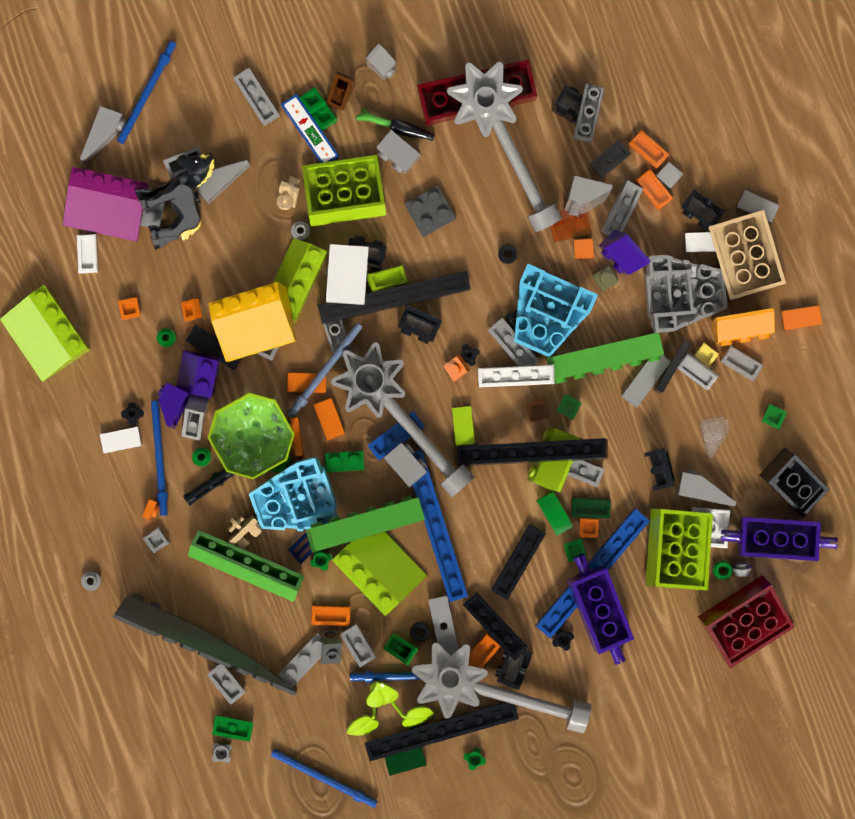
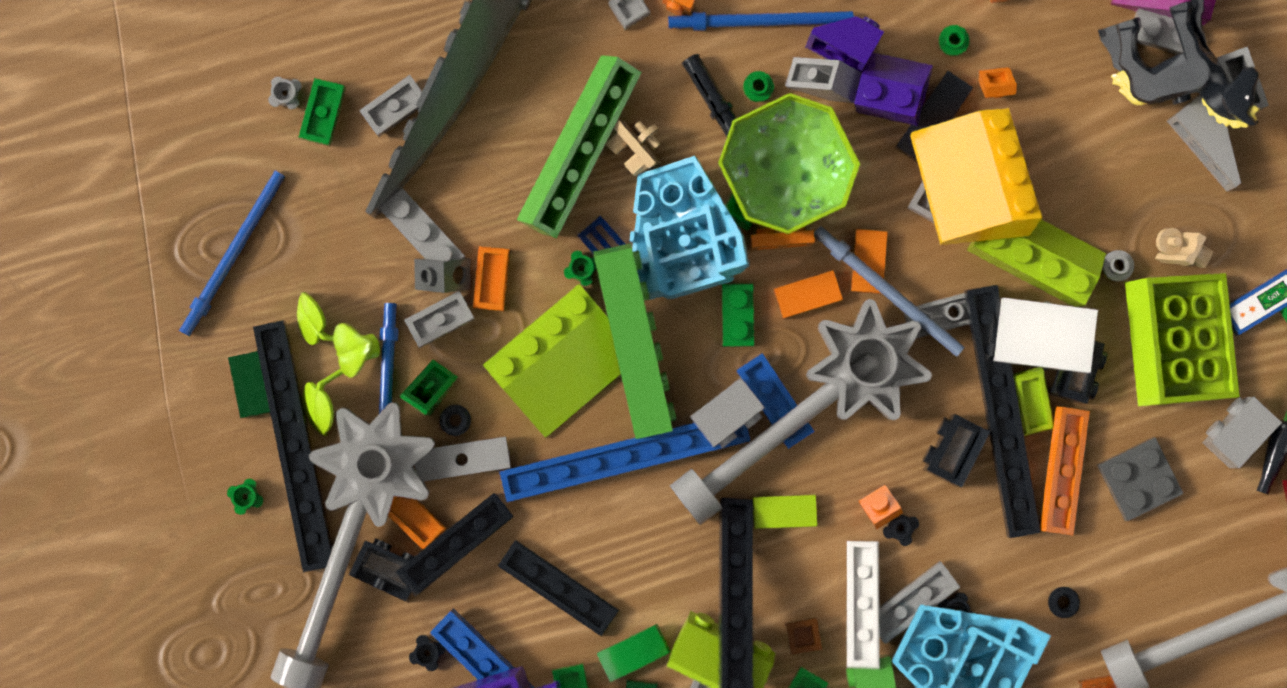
camera: 95 degrees right, 0 degrees up
(428, 257) = (1064, 470): none -> orange plate

